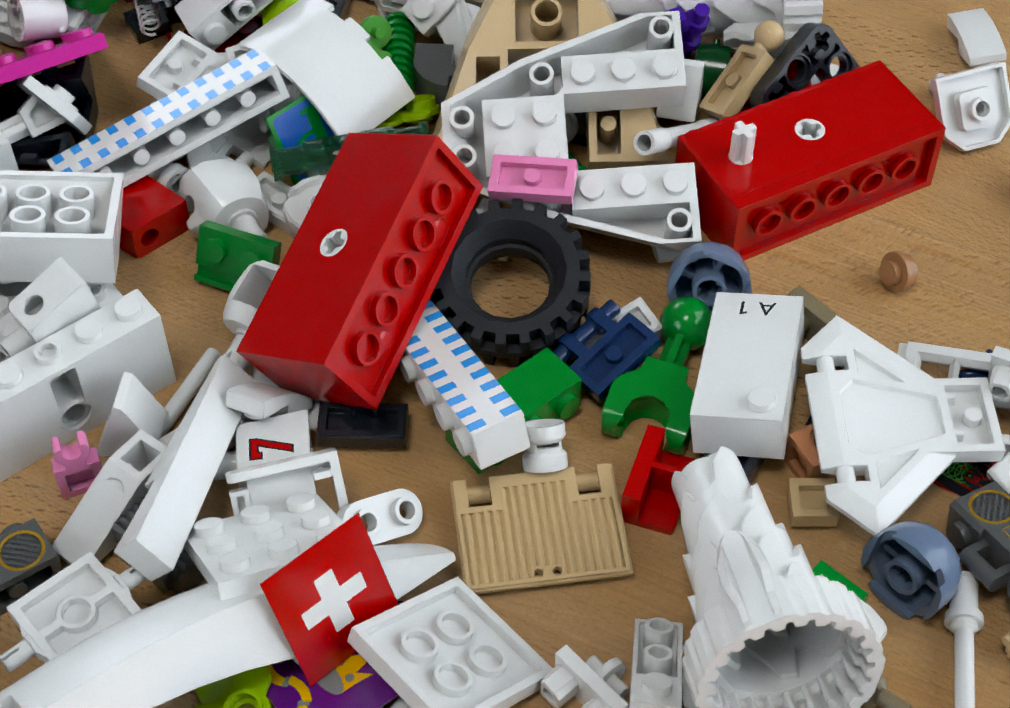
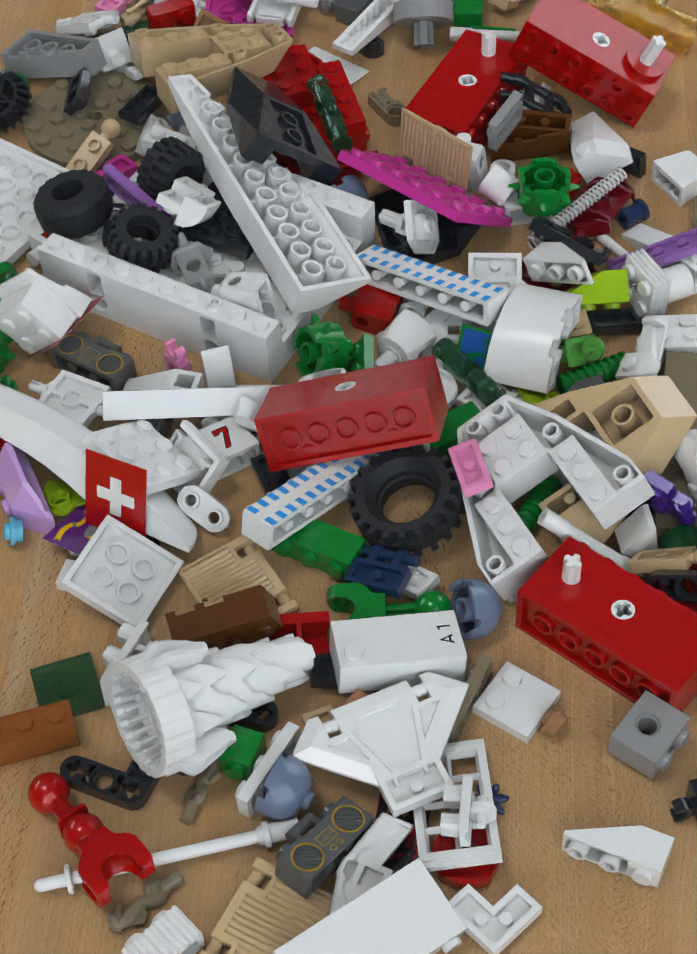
camera: 70 degrees right, 0 degrees up
(186, 284) = (321, 346): none -> green brick
(546, 446) = (291, 563): white wheel -> none
(628, 542) = (236, 620): none -> reddish brown wedge
(855, 293) = (516, 701): none -> white plate
(900, 613) = (249, 790): none -> white plate
(954, 193) = (652, 751): none -> light grey brick

